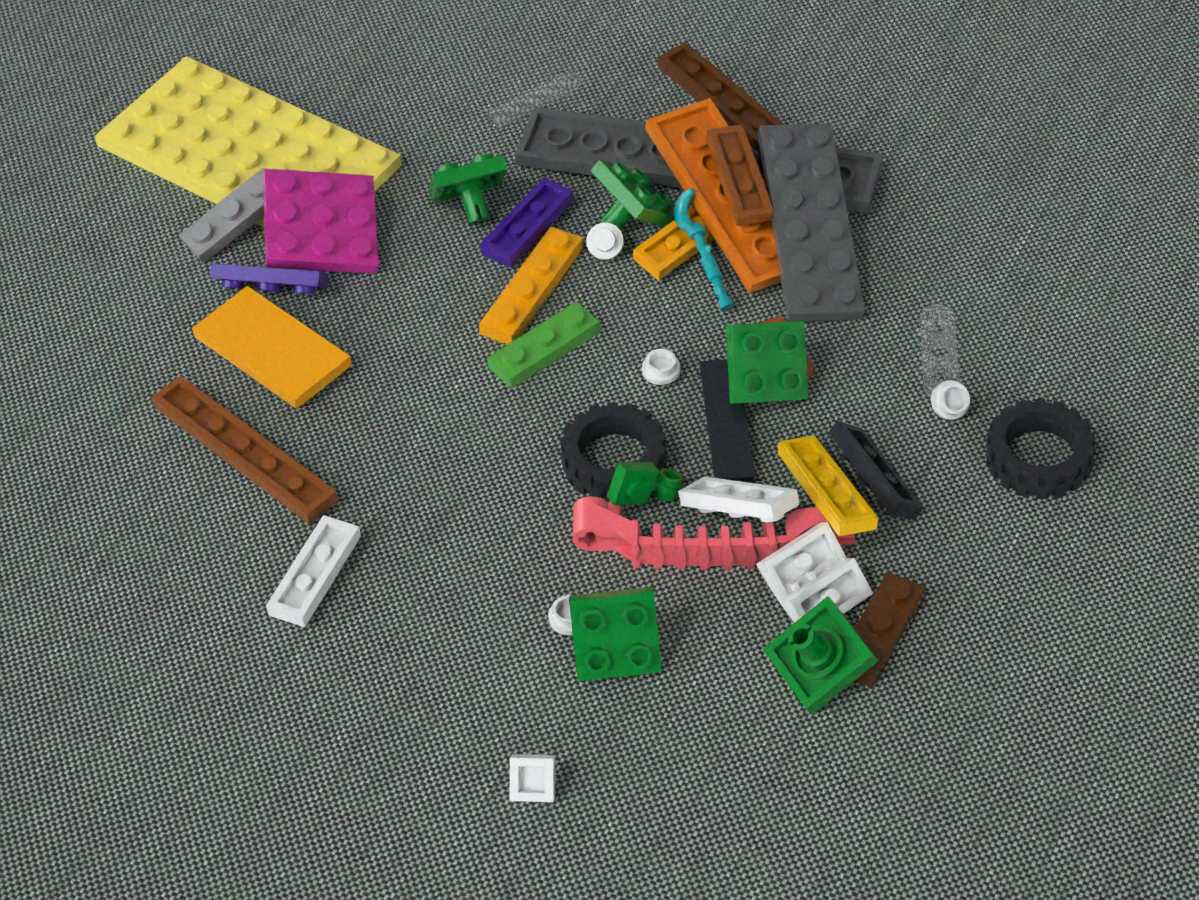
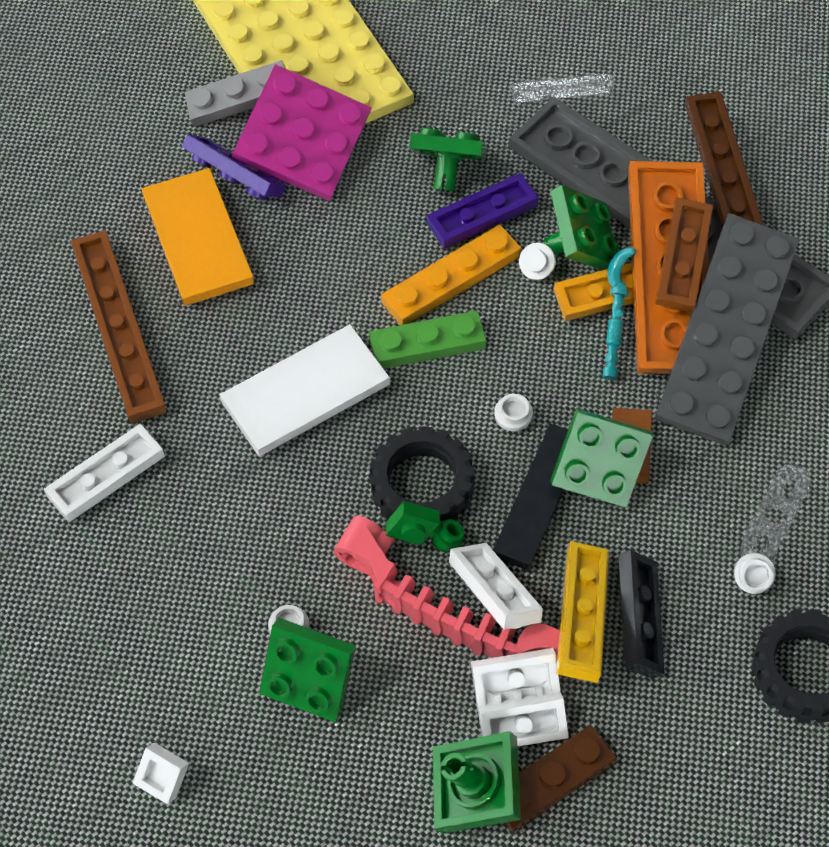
camera: 25 degrees right, 10 degrees up
(458, 427) = (304, 390): none -> white tile

